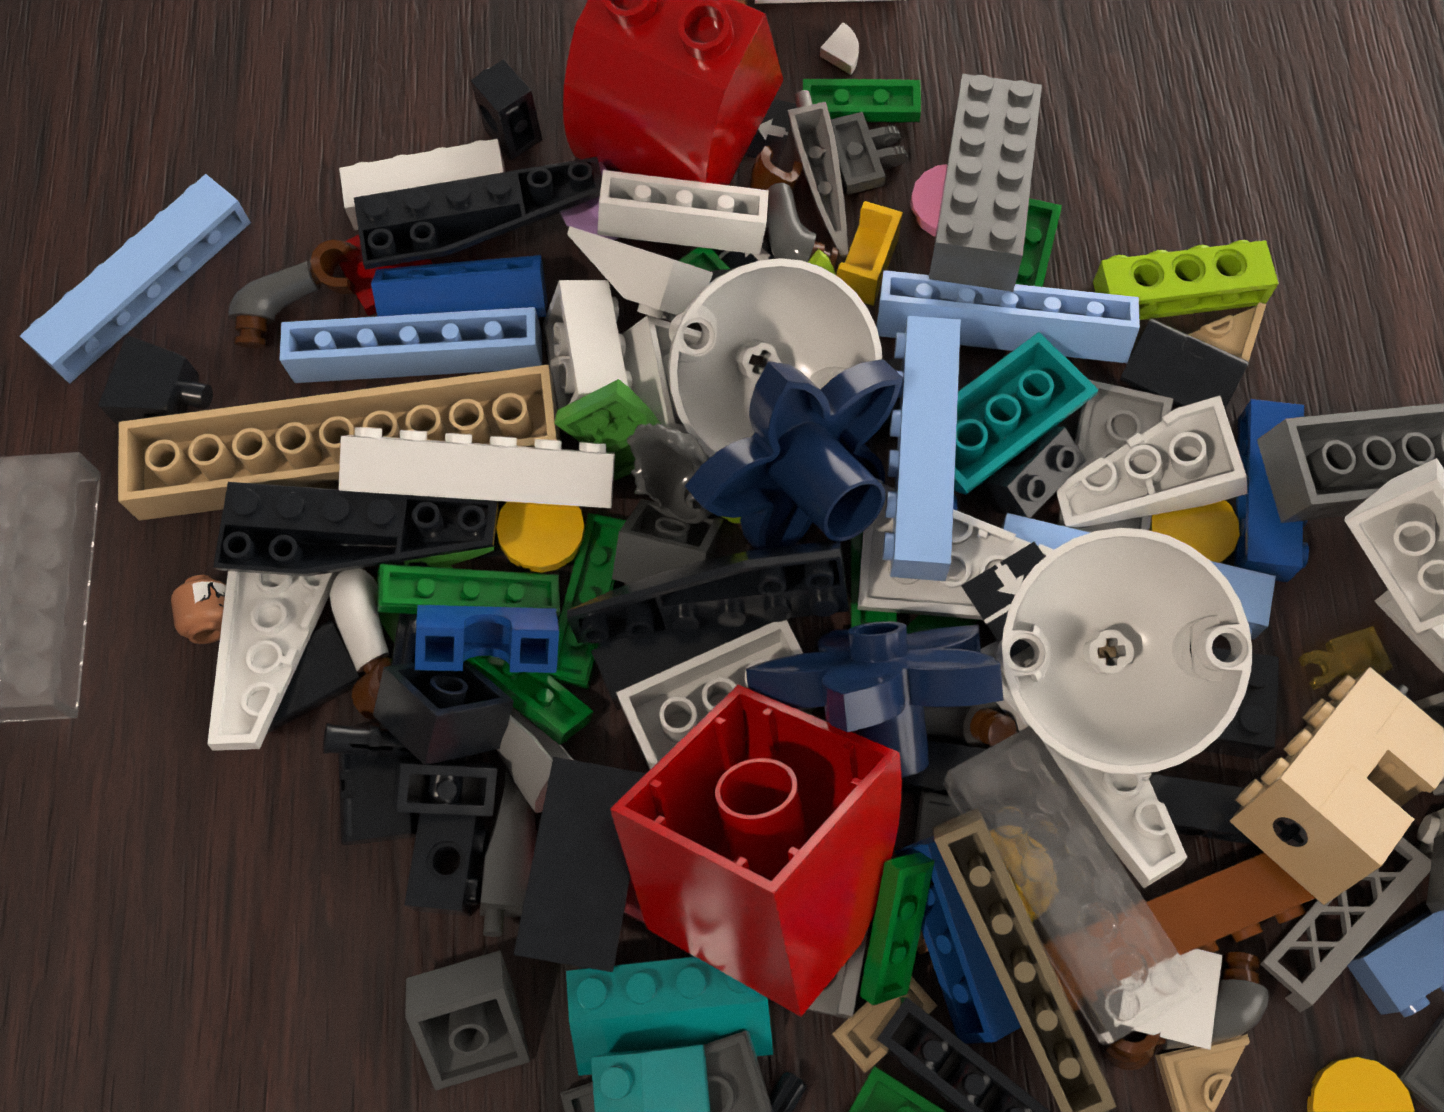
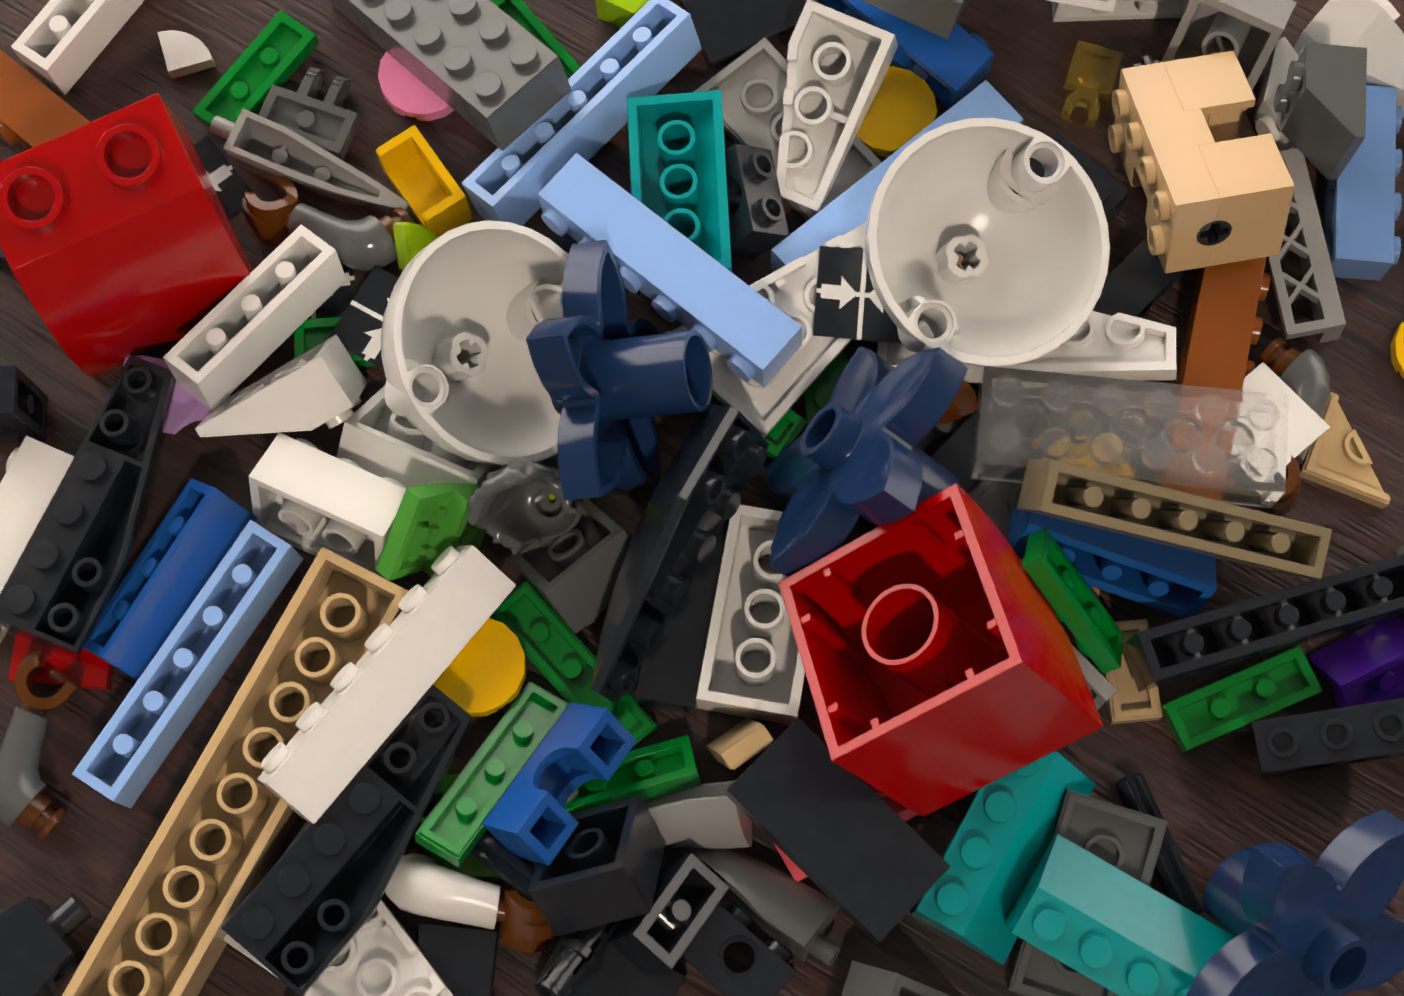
camera: 55 degrees left, 5 degrees up
(606, 750) = (740, 743): none -> tan tile

